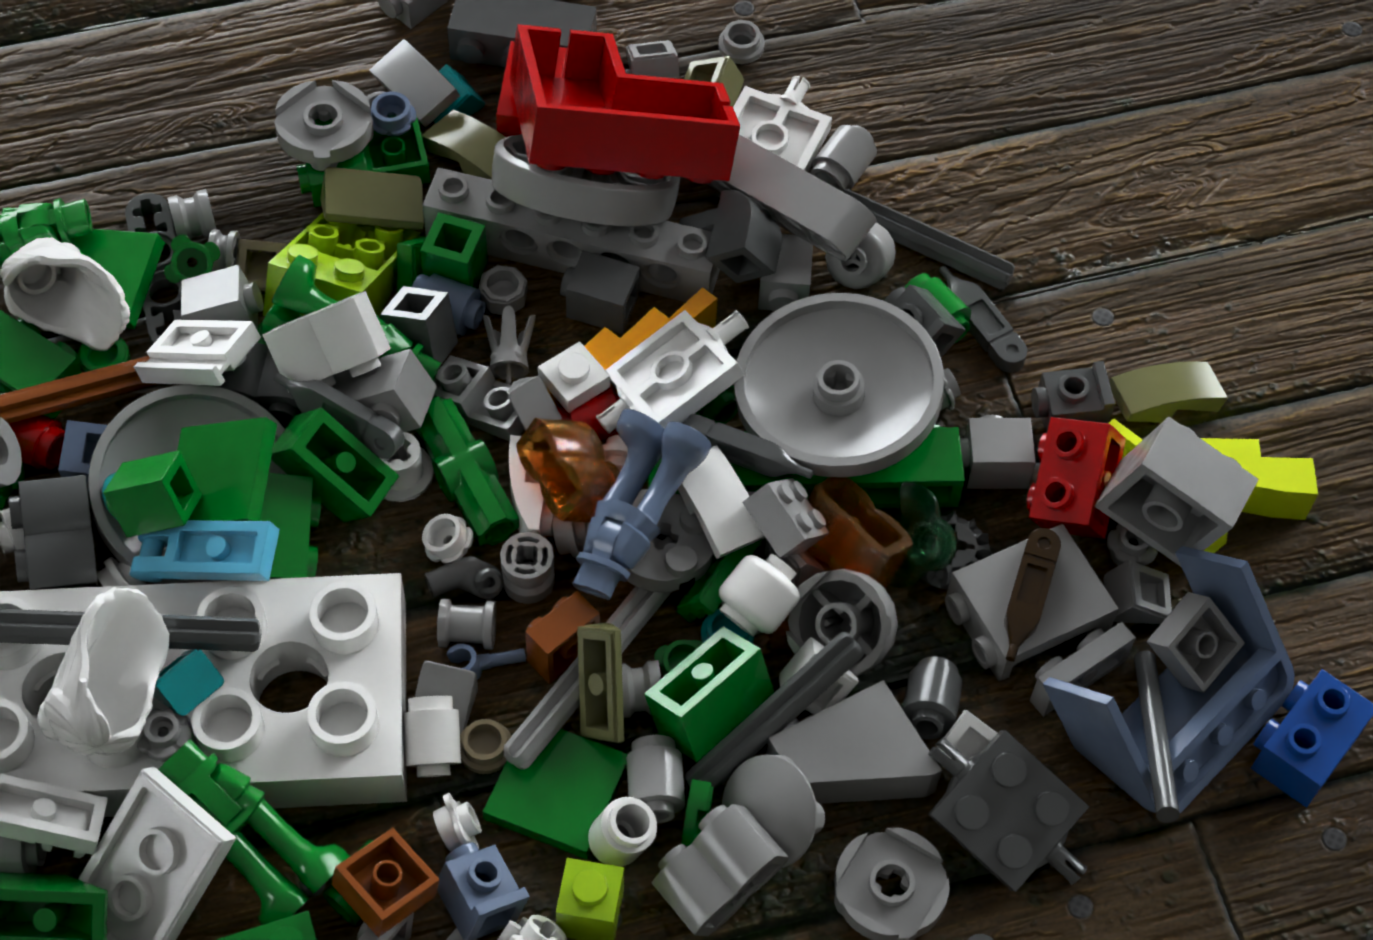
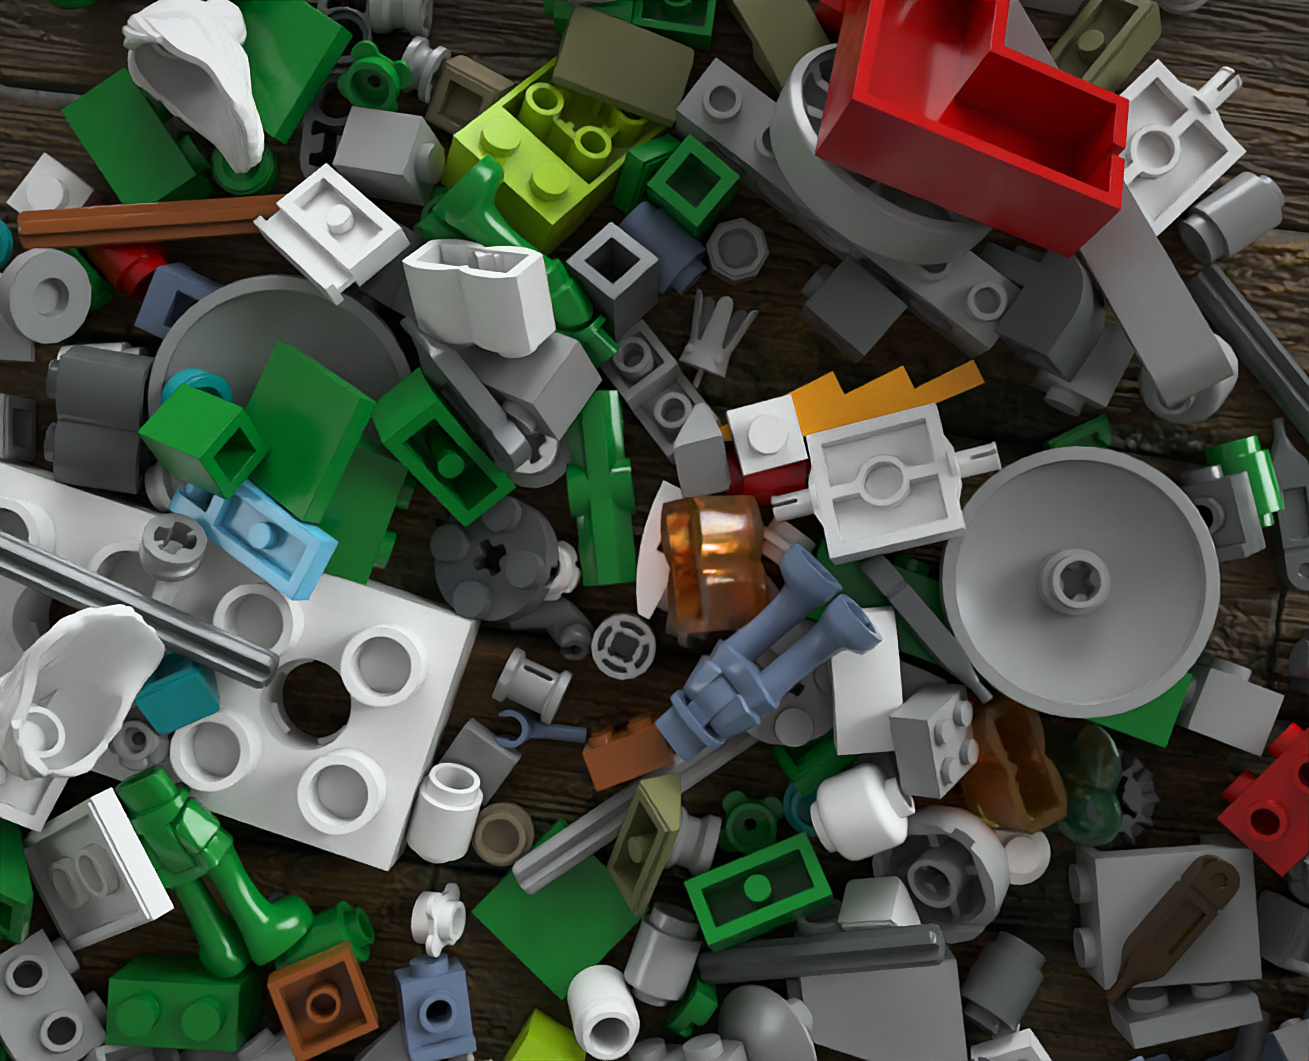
camera: 25 degrees right, 30 degrees up
(150, 579) = (158, 534): none -> light grey bush
(397, 515) = (520, 584): none -> dark grey plate
(909, 606) = (1026, 855): none -> white plate

